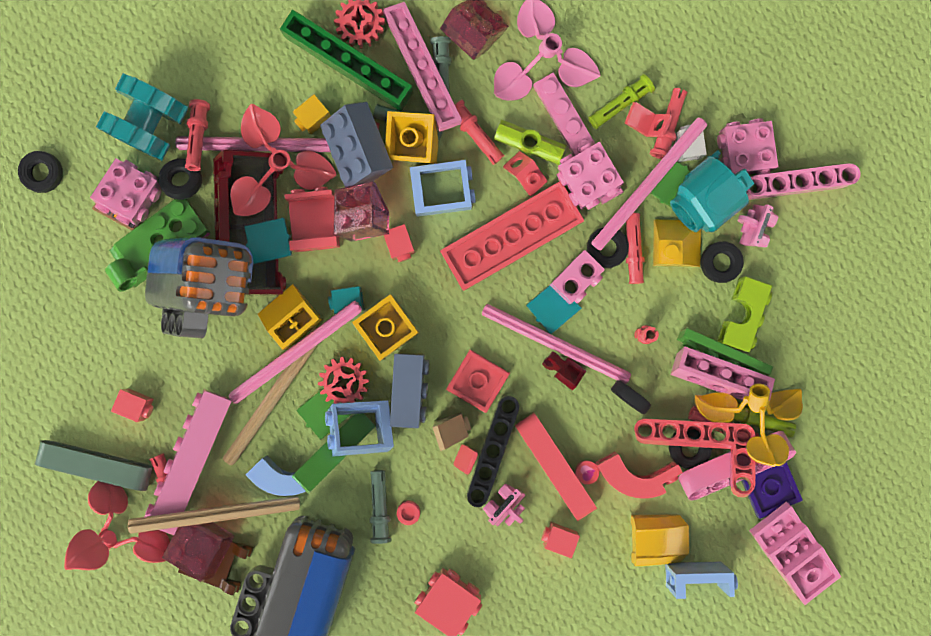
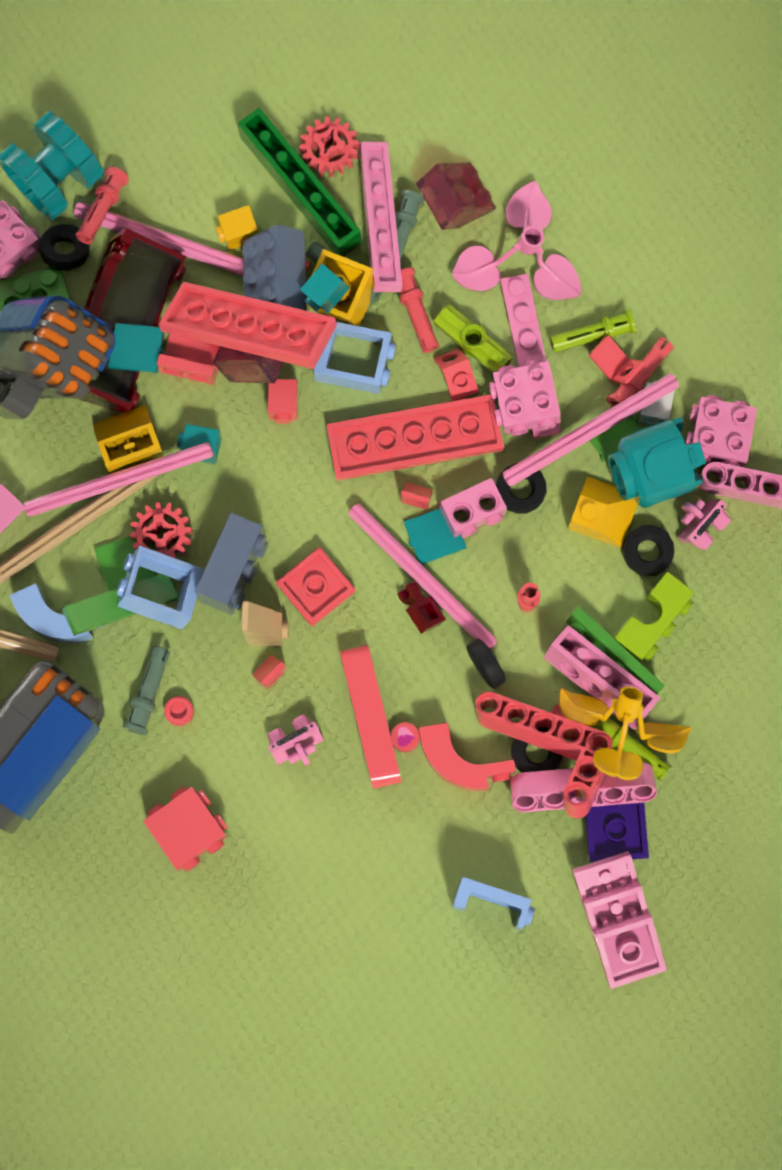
camera: 20 degrees right, 10 degrees down
(261, 128) = (170, 222): coral plant -> none
(352, 197) = (248, 325): none -> coral plate
(385, 327) = (232, 486): yellow brick -> none
(401, 146) = (324, 289): none -> teal brick
(486, 460) = (305, 657): black beam -> none
(529, 280) = (416, 495): none -> coral slope
(560, 539) = (344, 802): coral brick -> none
(635, 259) = (548, 510): coral pin -> none
(659, 539) = (462, 846): yellow slope -> none

